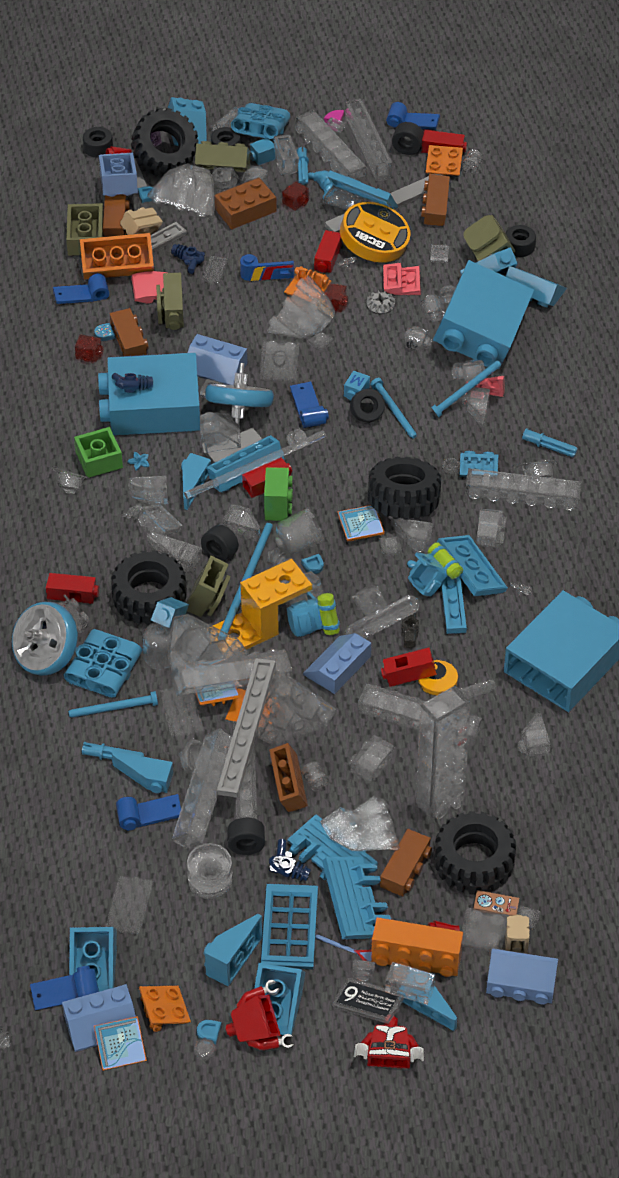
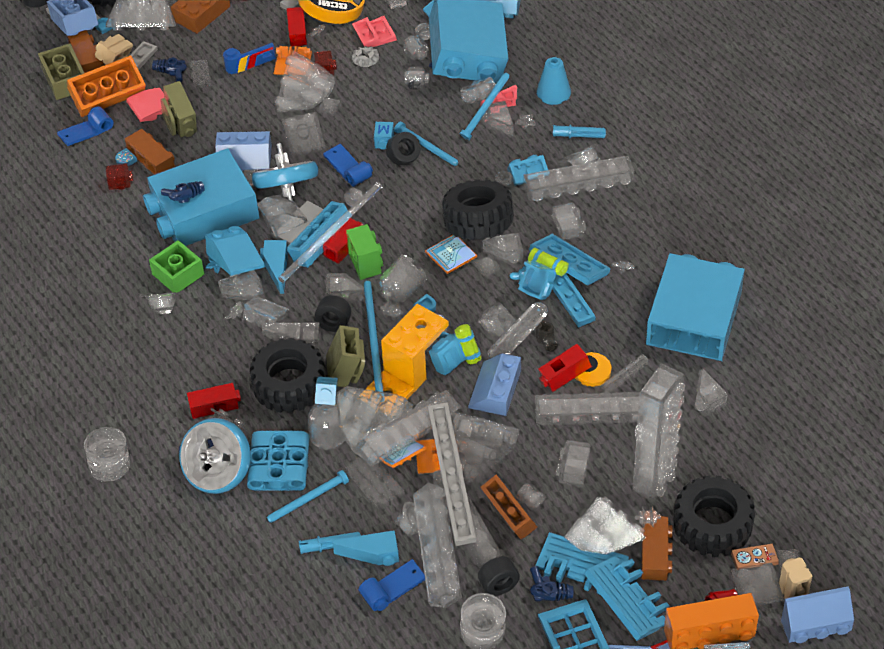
camera: 20 degrees left, 0 degrees up
(156, 453) = (233, 250): none -> dark azure slope
(408, 830) = (647, 517): none -> clear wheel
(503, 415) = (525, 120): none -> clear plant
(548, 386) = (553, 84): none -> dark azure cone

